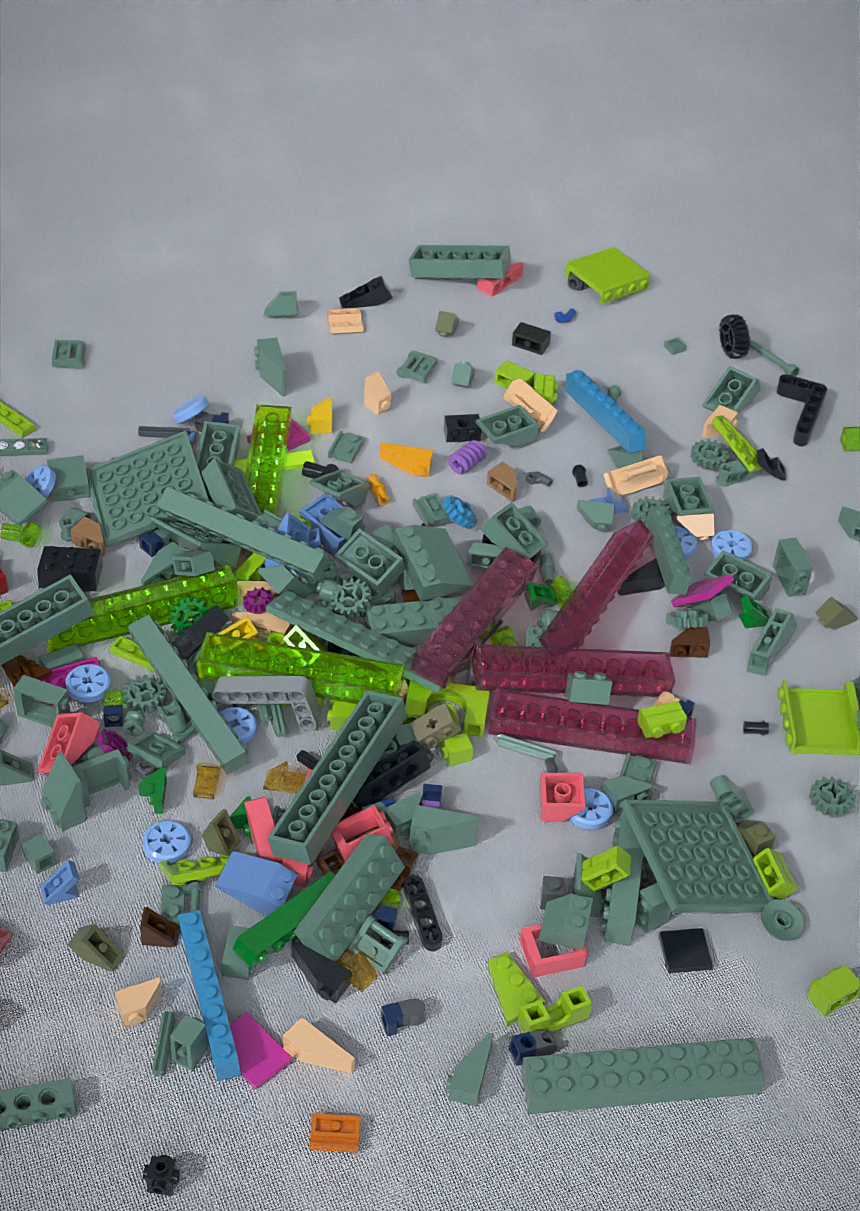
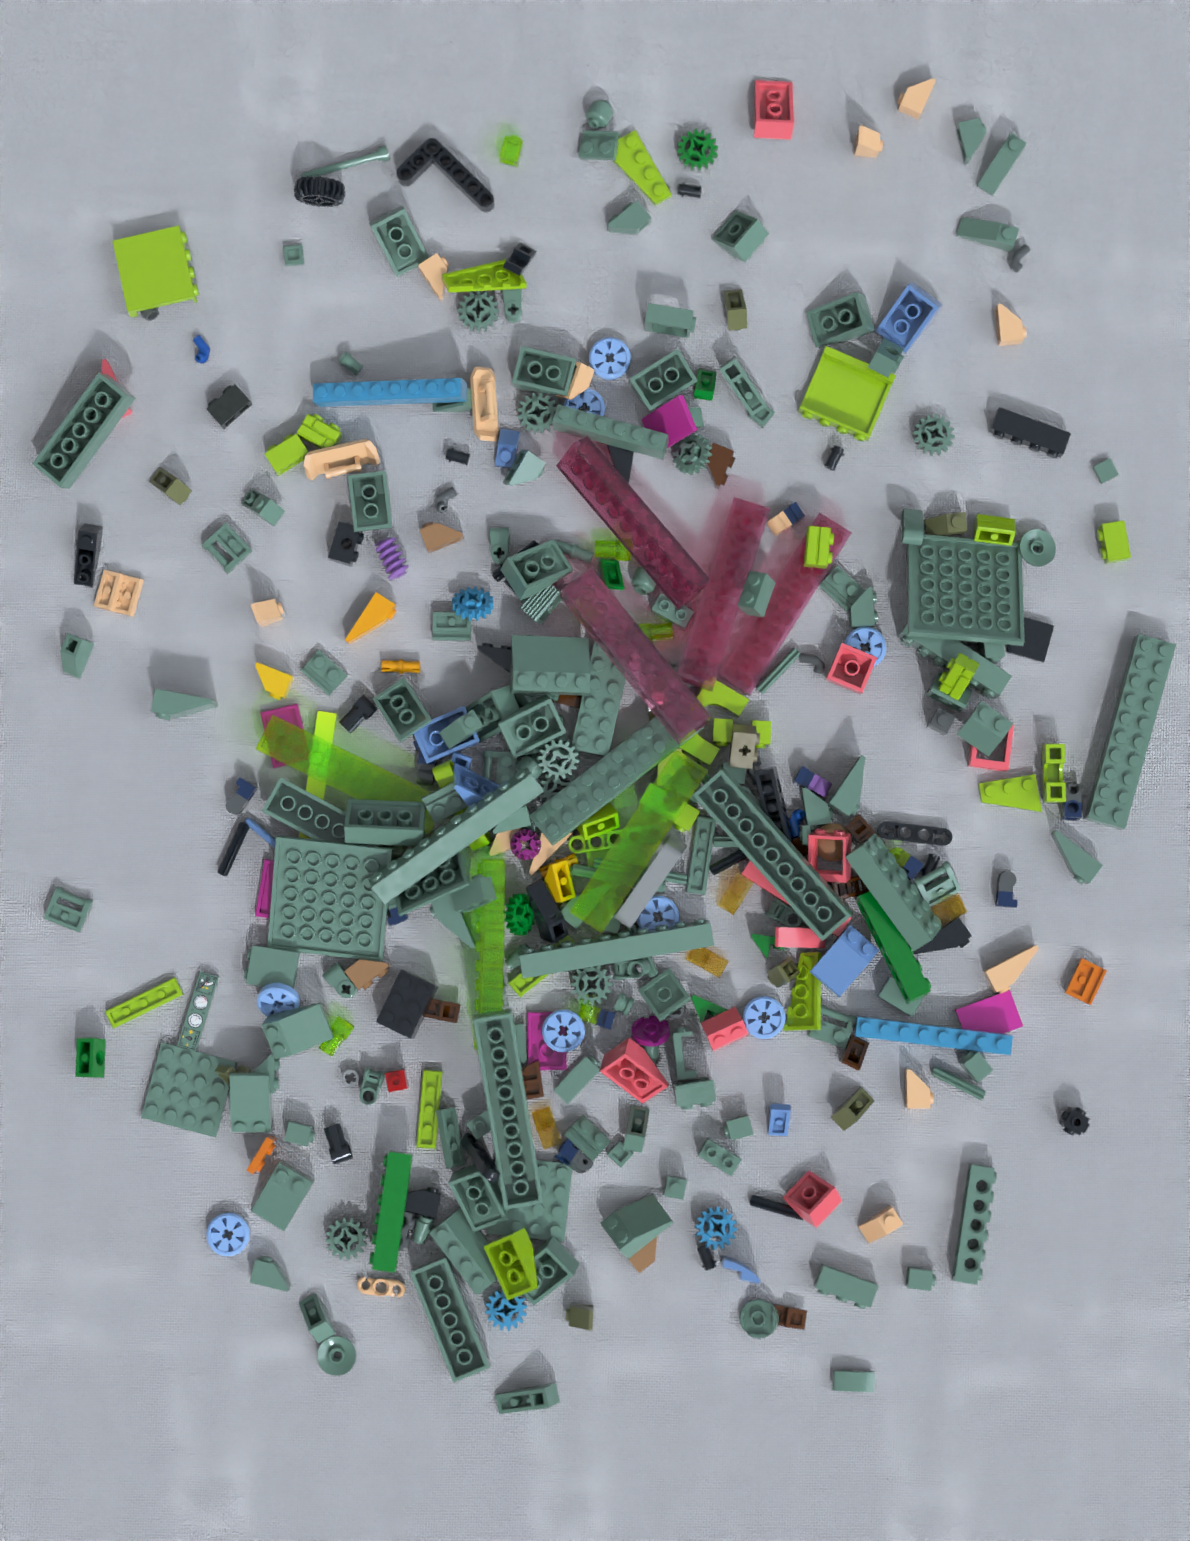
camera: 65 degrees left, 40 degrees up
(137, 804) = (724, 1029): none -> coral slope
(190, 409) = (208, 811): light blue wheel -> none
(311, 743) = (701, 855): none -> sand green tile

